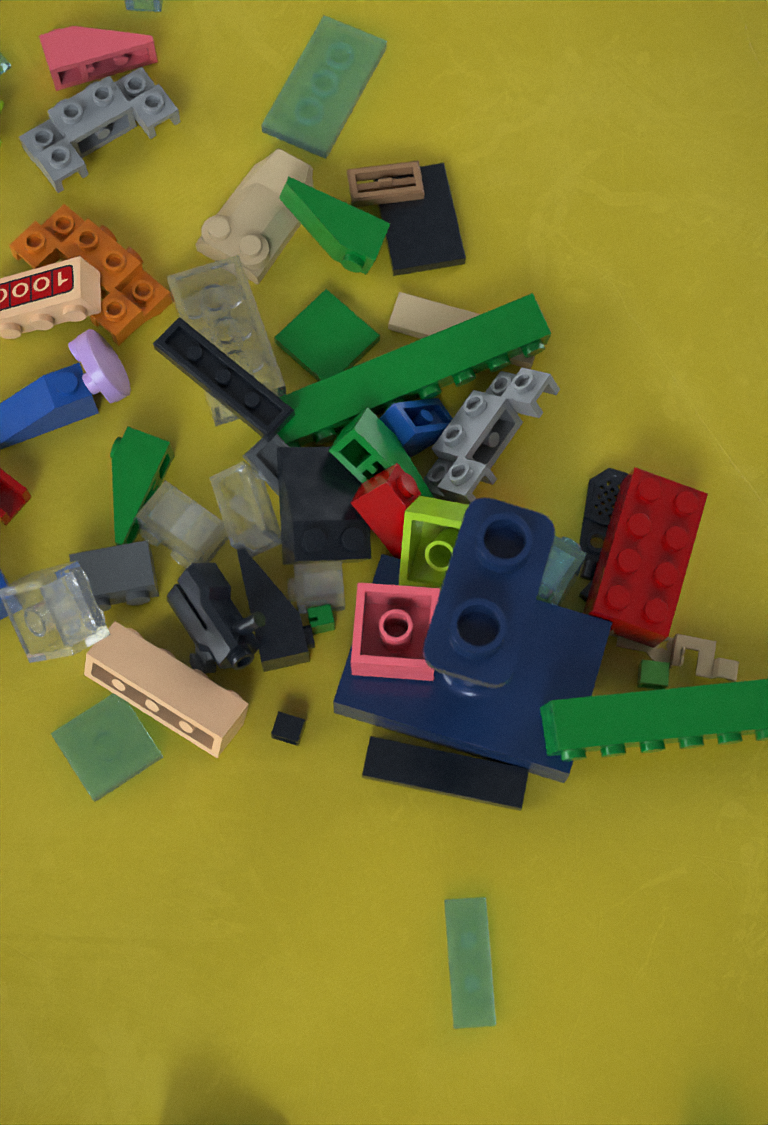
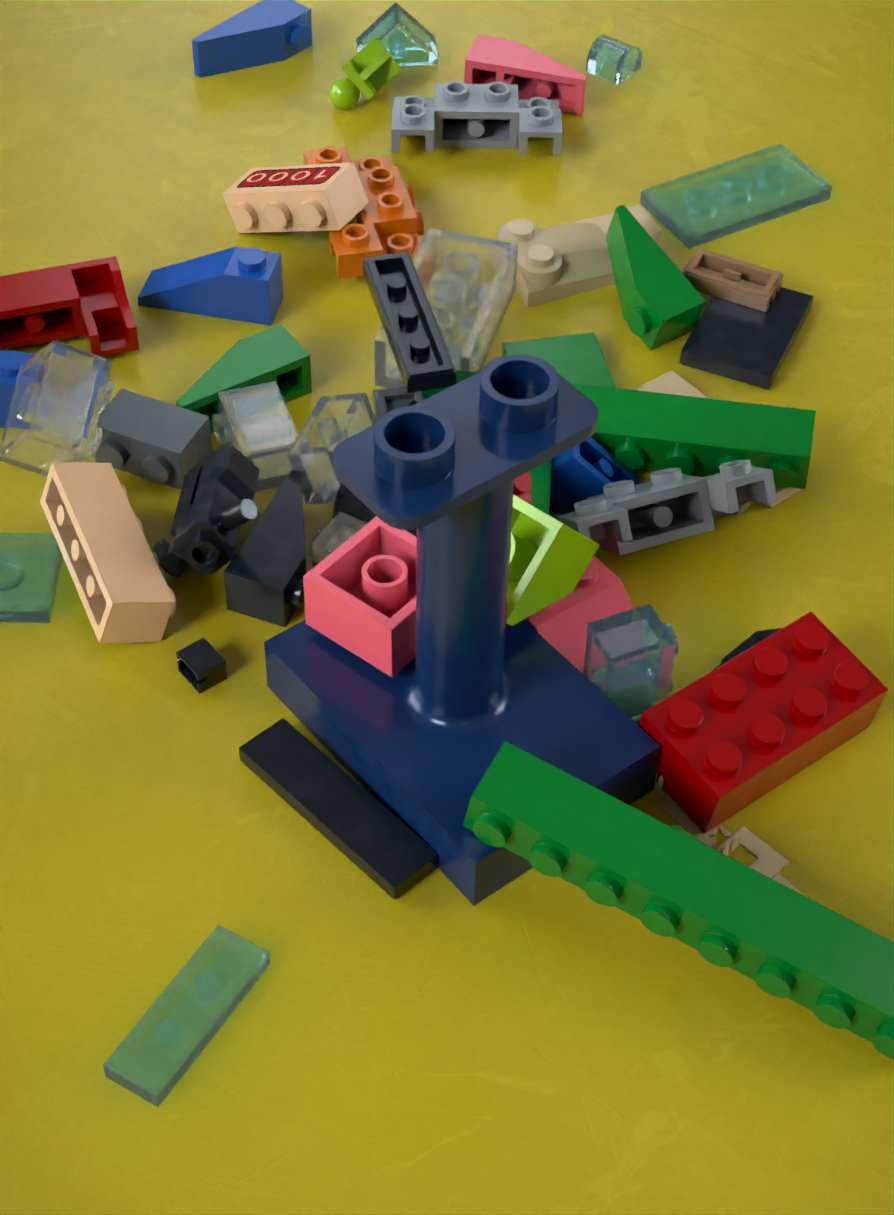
camera: 35 degrees right, 25 degrees down
(102, 366) = (302, 274): lavender tile -> none

